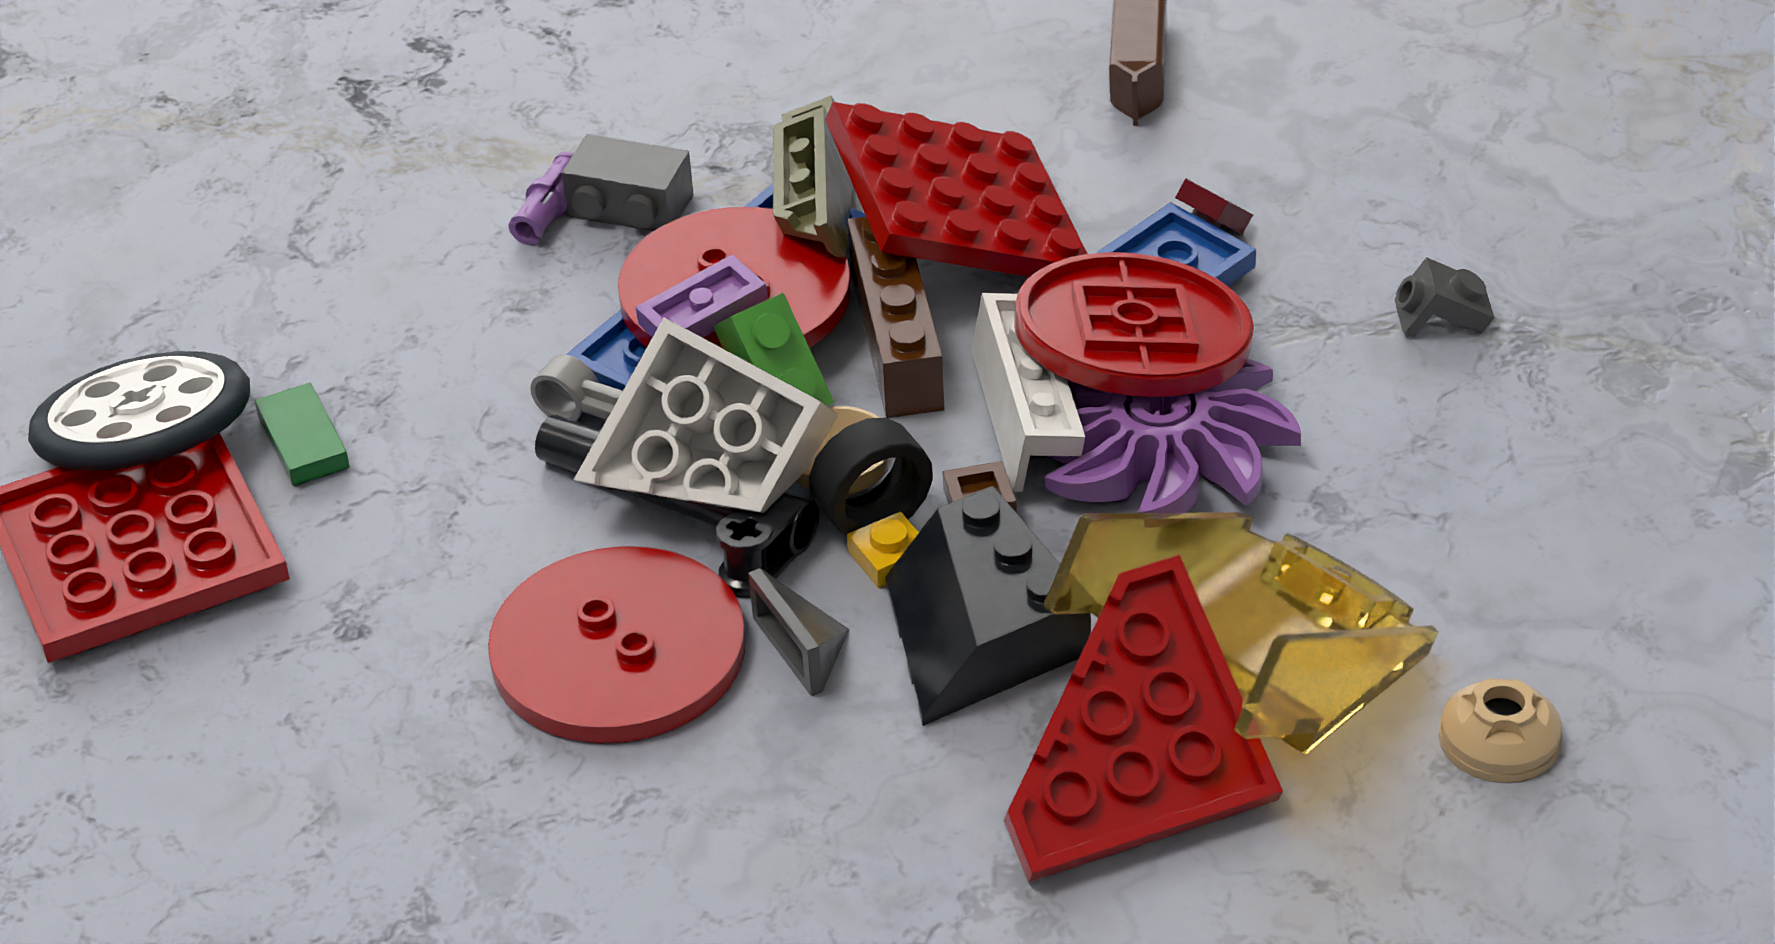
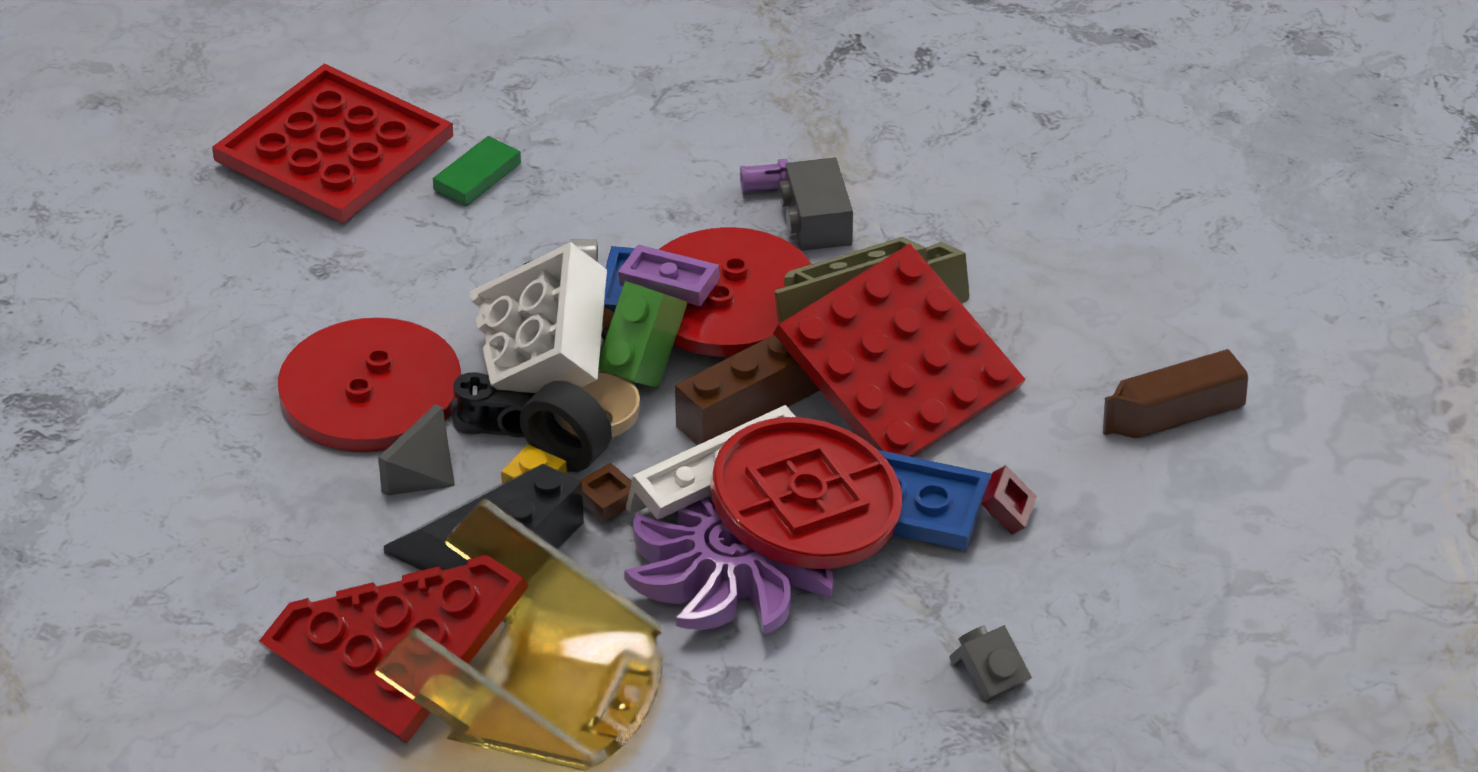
camera: 60 degrees right, 0 degrees up
(139, 410) = (439, 91): wedge -> none

